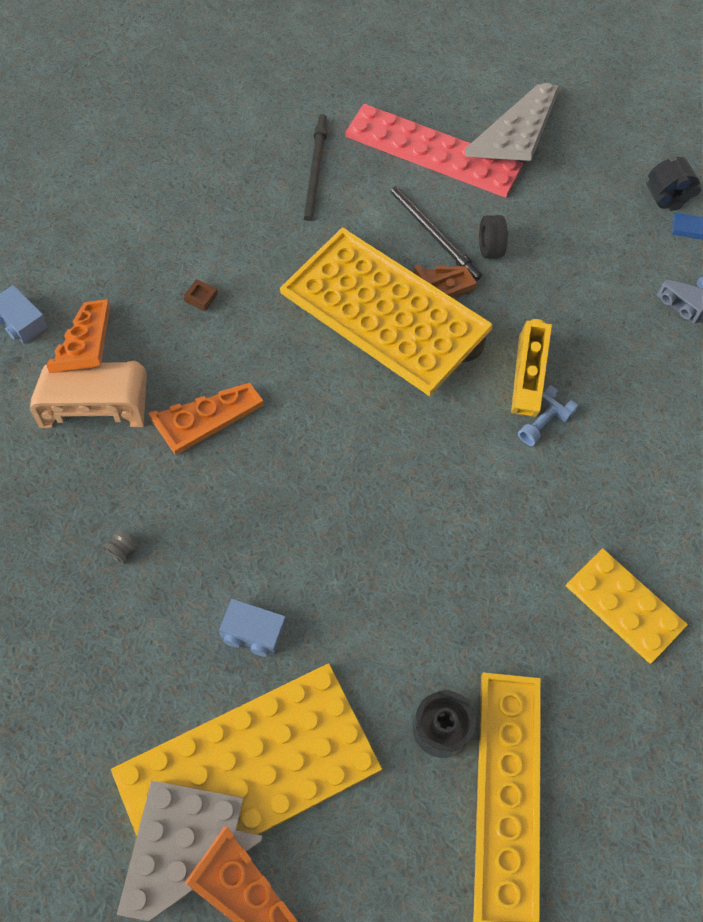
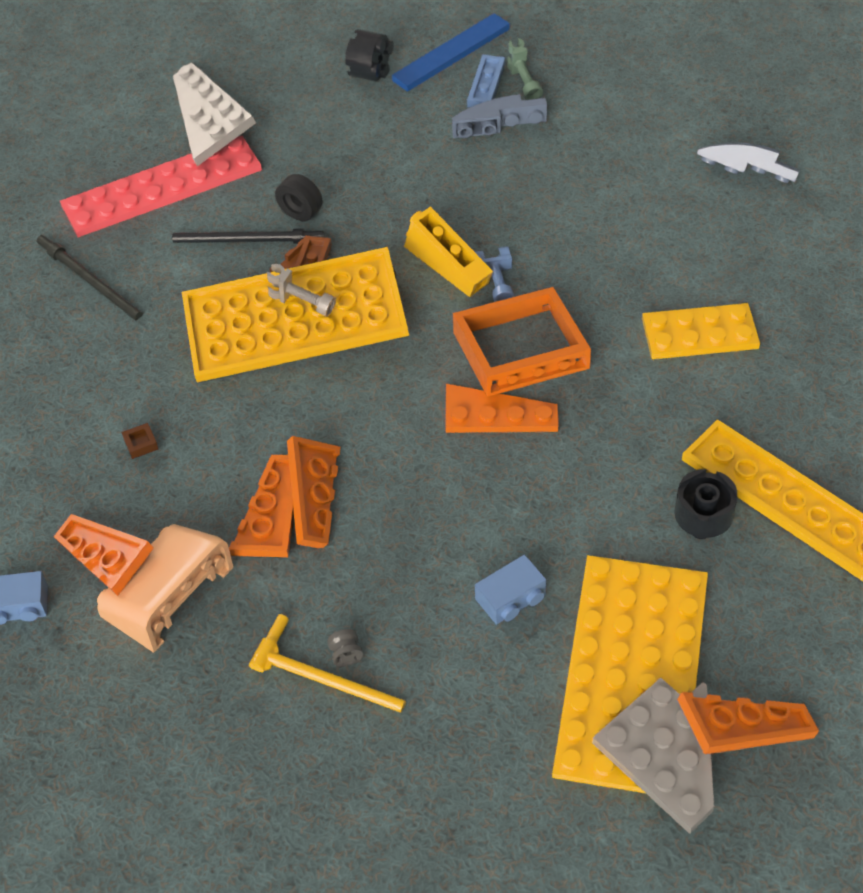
camera: 45 degrees left, 10 degrees down
(80, 501) = (268, 656): none -> yellow bar
(246, 424) = (312, 488): none -> orange wing
(392, 284) = (284, 282): none -> light grey bar
(411, 501) = (475, 412): none -> orange wing
(473, 506) = (527, 370): none -> orange window

